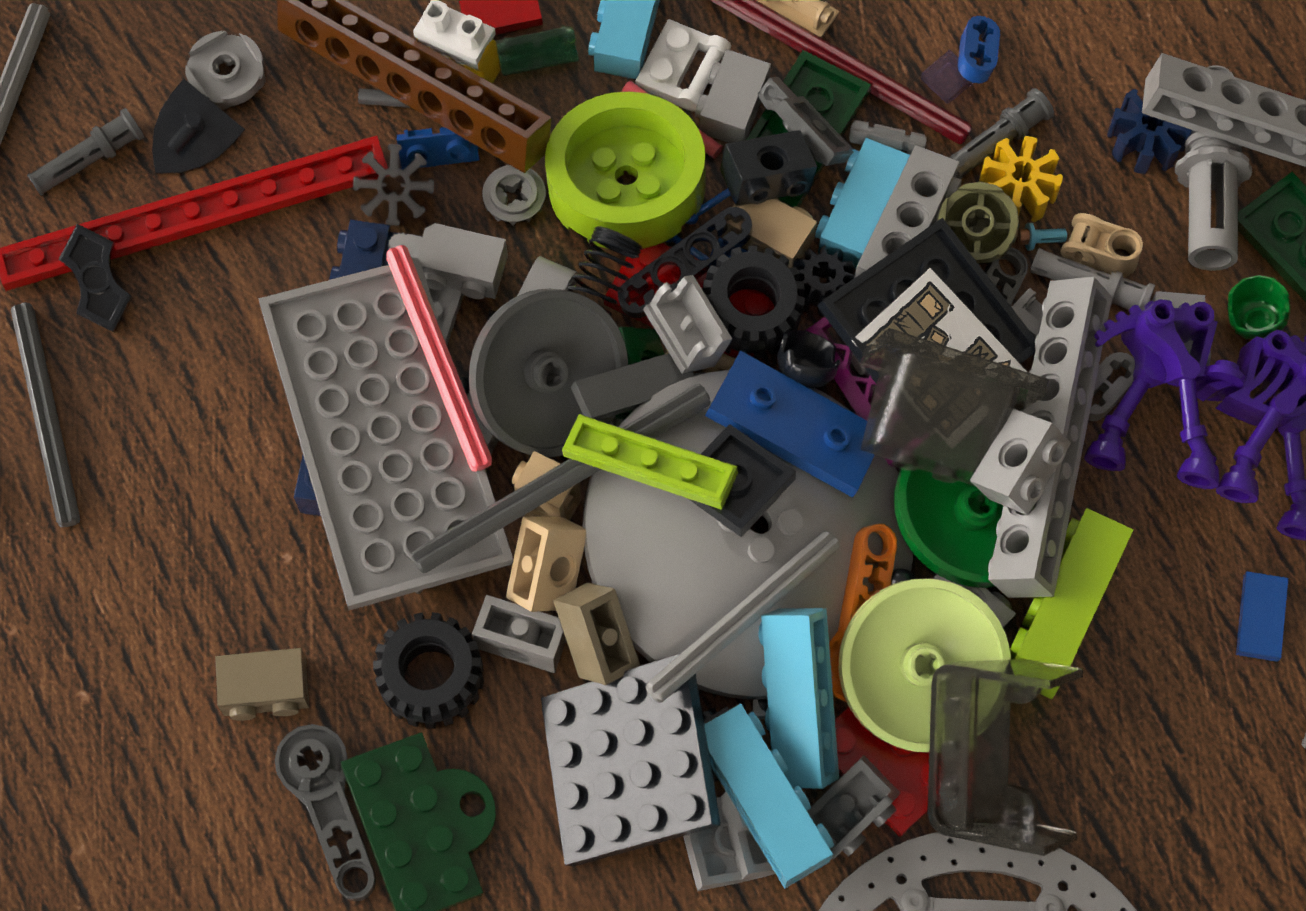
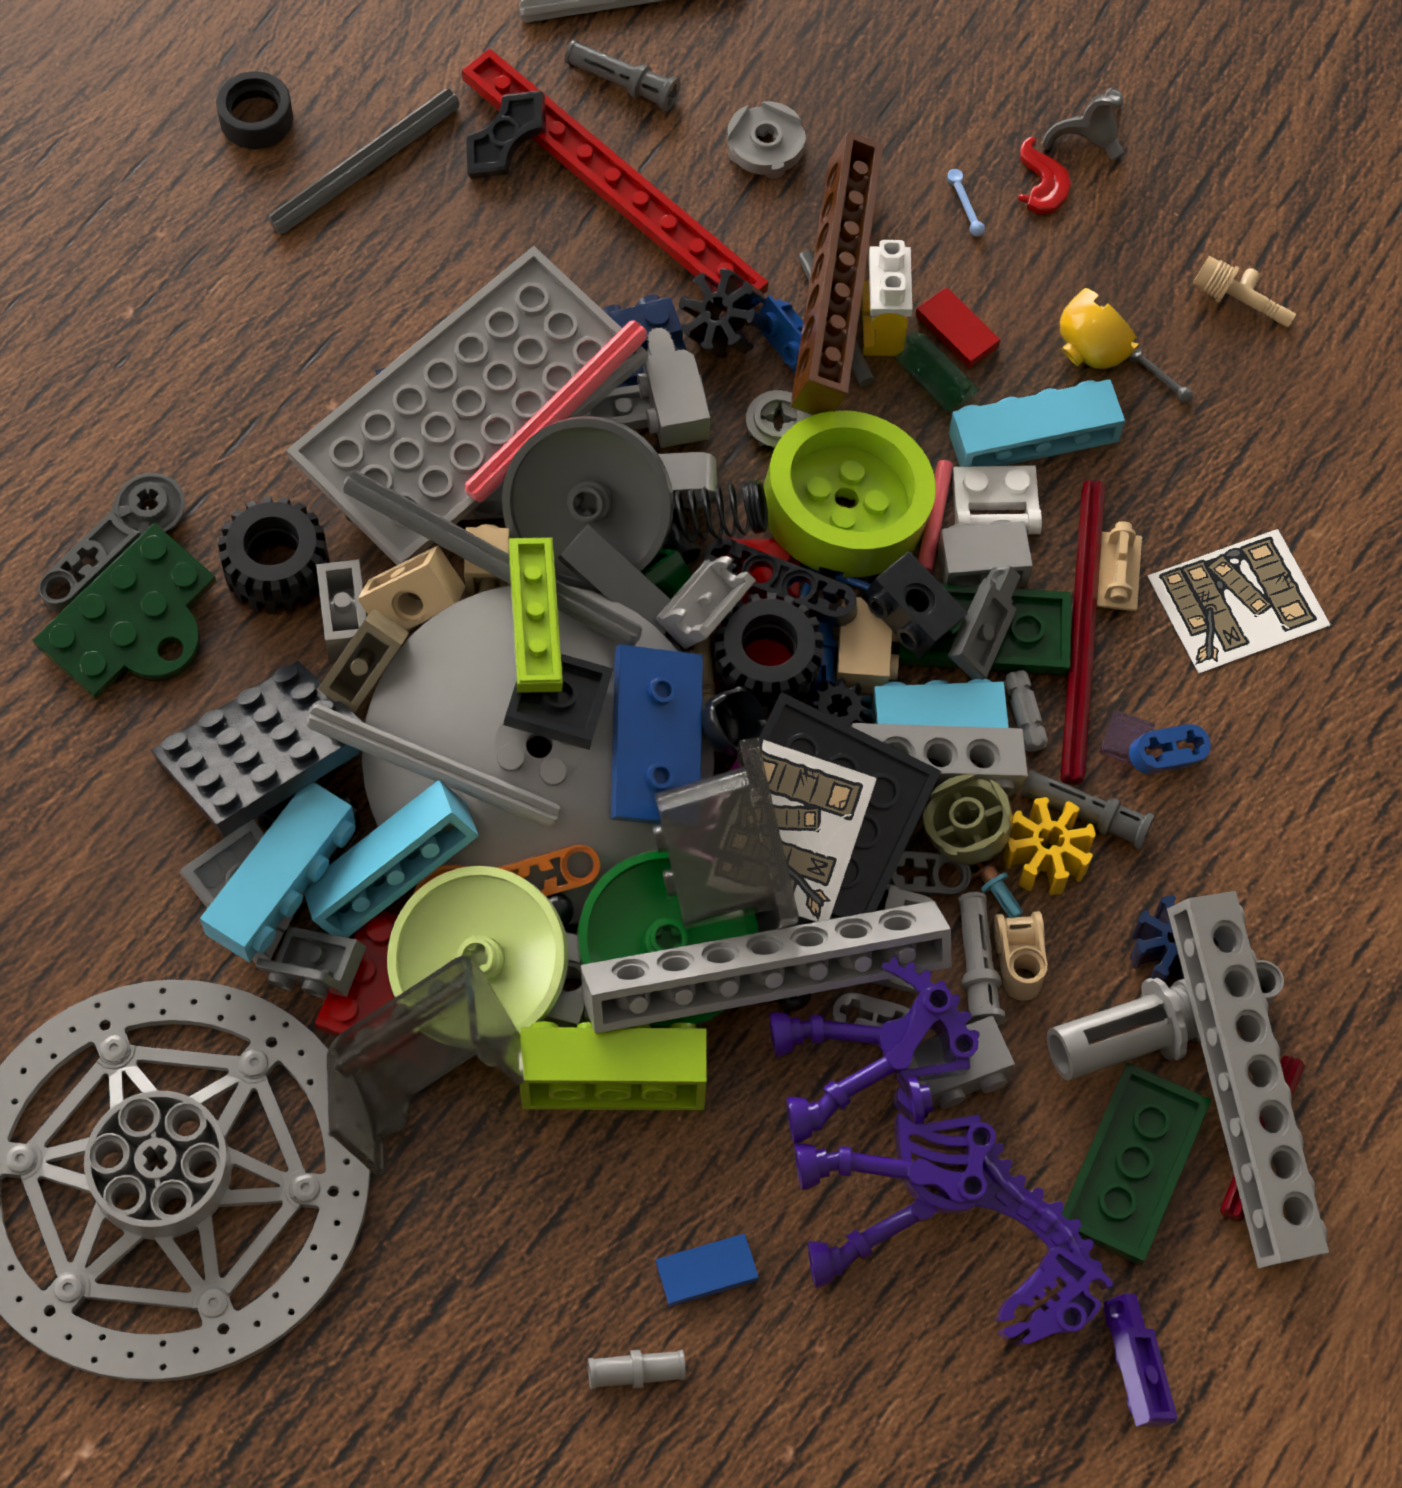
camera: 60 degrees right, 5 degrees down
(191, 131) = (690, 141): black shield -> none
(262, 683) = (200, 433): dark tan brick -> none
(1020, 461) = (708, 936): light grey brick -> none
(1258, 306) = (1035, 1126): green hair -> none

